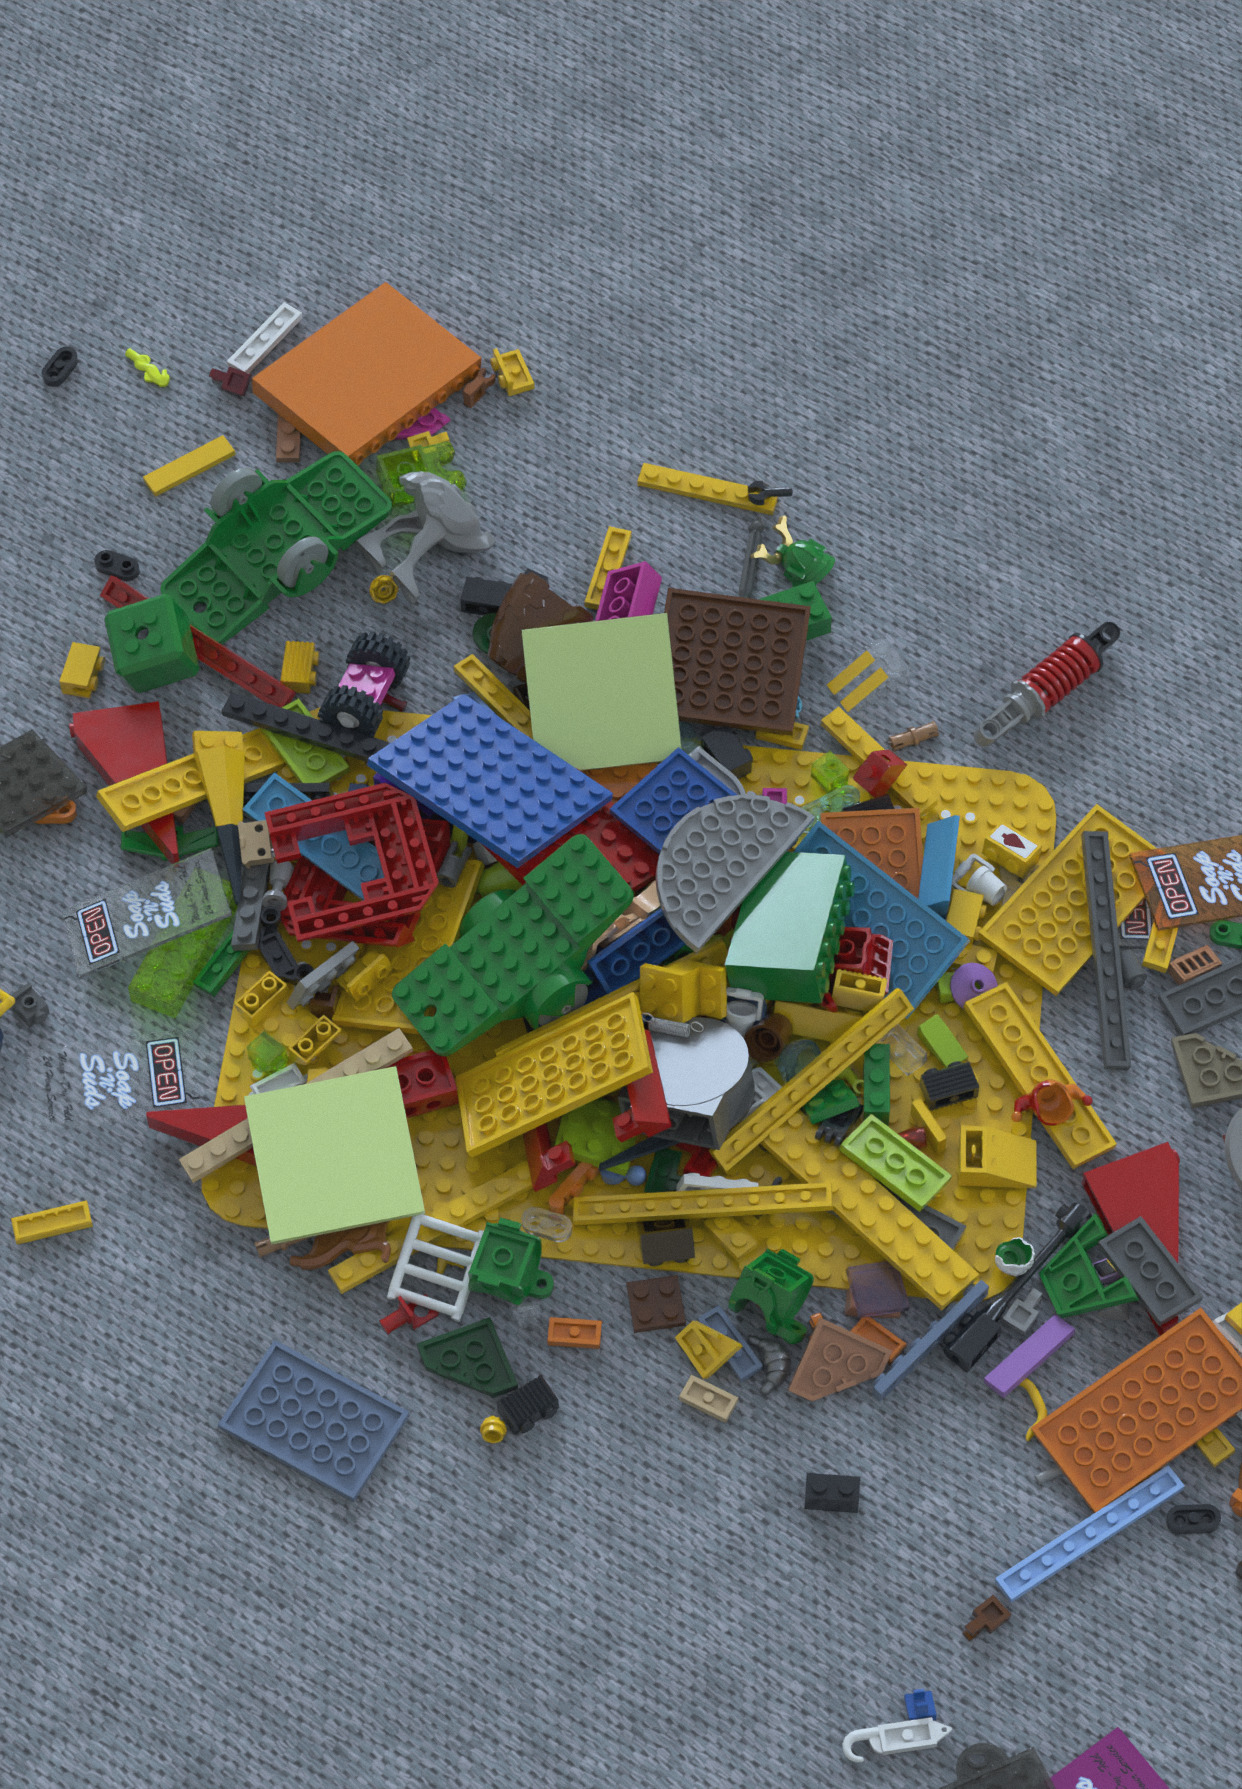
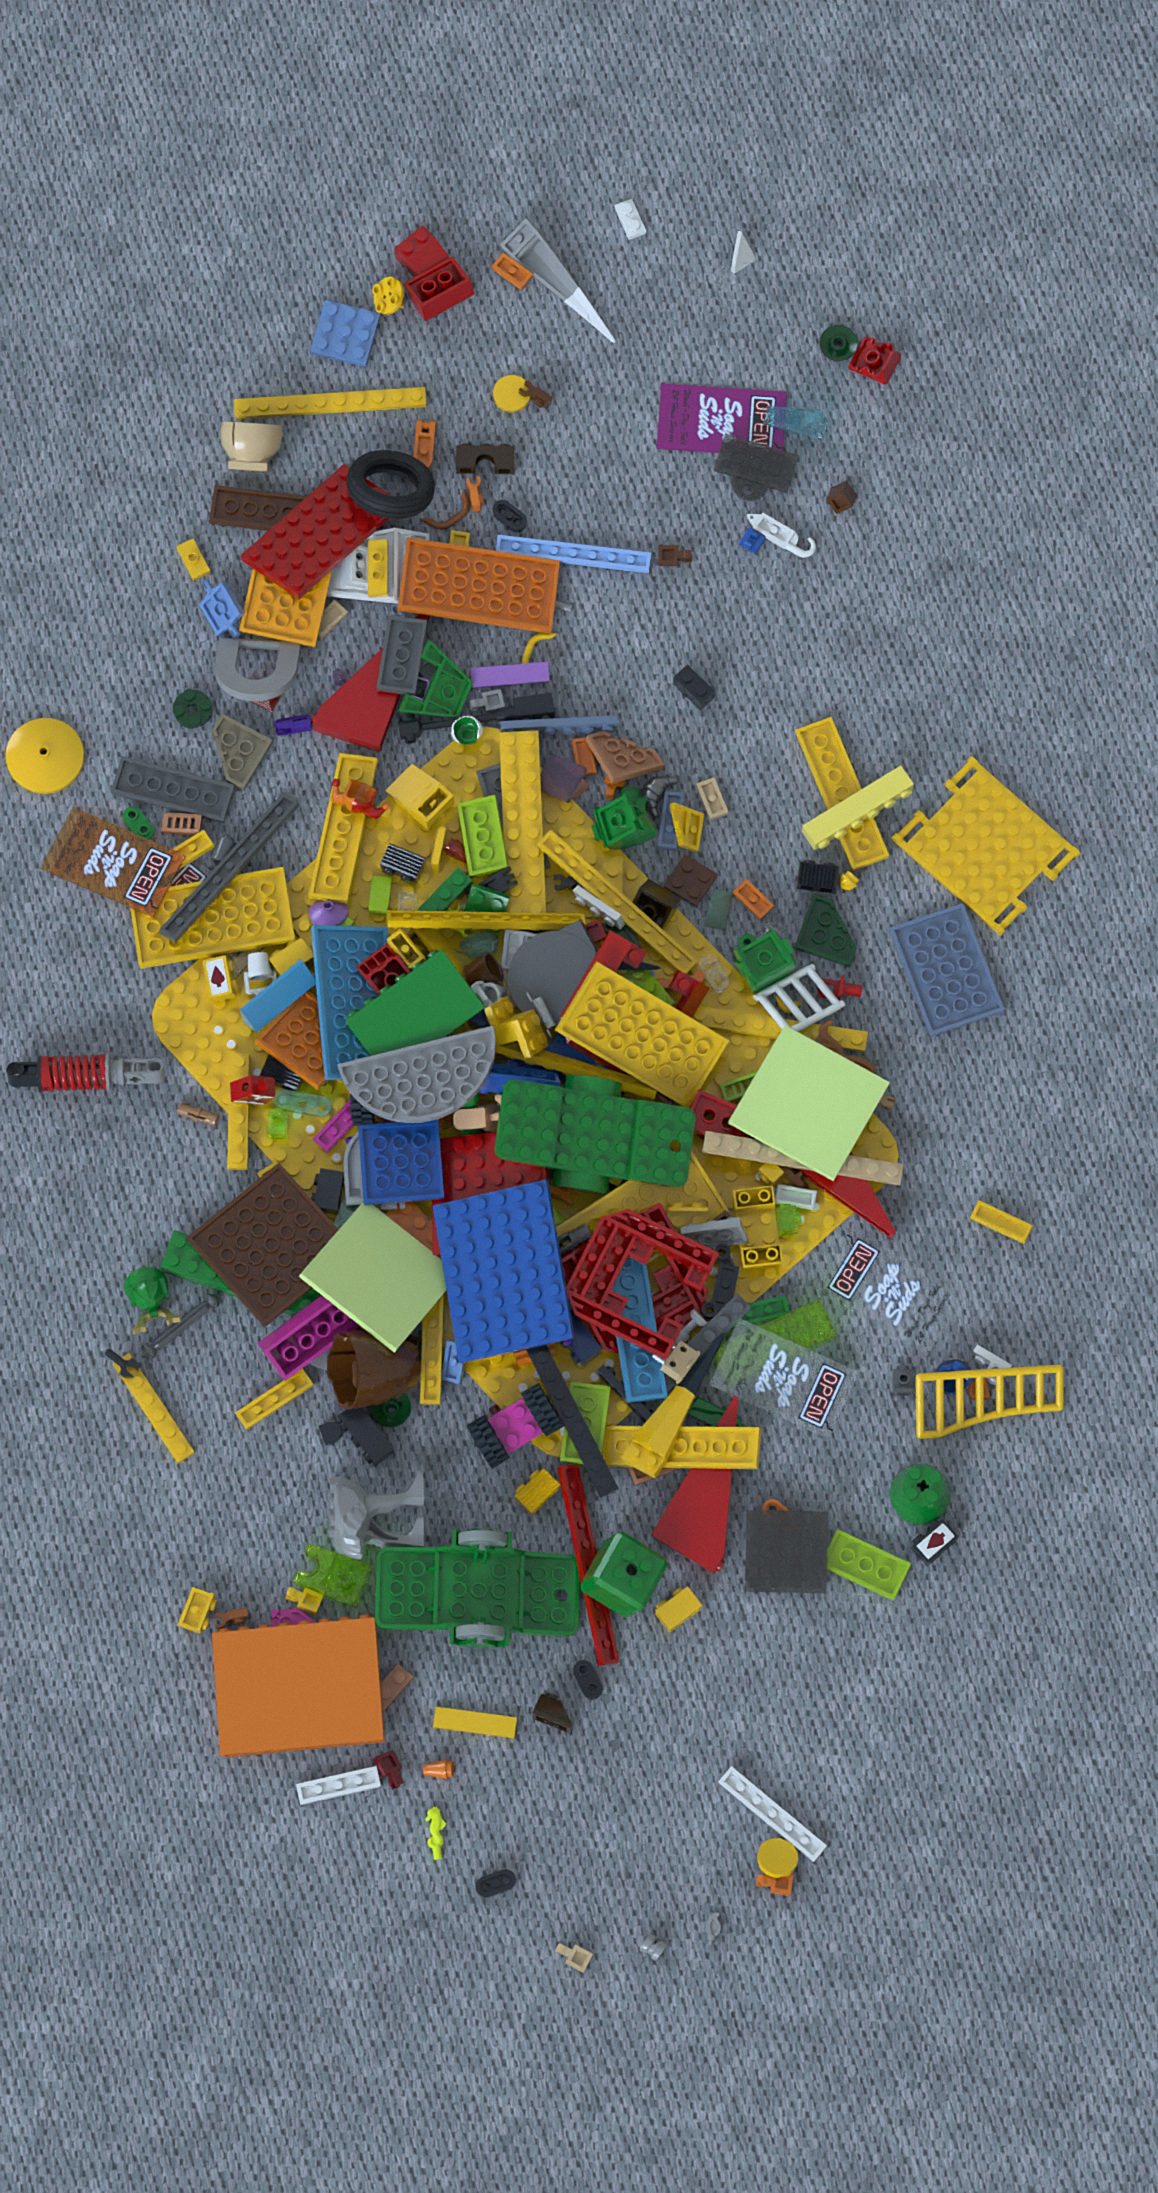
camera: 140 degrees left, 15 degrees up
(120, 508) = (552, 1713): none -> dark brown slope
(184, 411) = (439, 1769): none -> orange cone
(381, 1583) = (985, 846): none -> yellow plate
(386, 595) = (432, 1507): yellow plate -> none
(425, 1148) = (724, 1087): none -> lime slope
(546, 1499) = (857, 808): none -> light yellow brick
(580, 1512) = (836, 783): none -> yellow plate
(603, 1299) = (718, 909): none -> sand green slope
(869, 677) = (187, 1176): clear slope -> none
(1190, 1133) = (293, 725): none -> dark purple hinge
(1192, 1216) = (339, 677): none -> clear purple plate

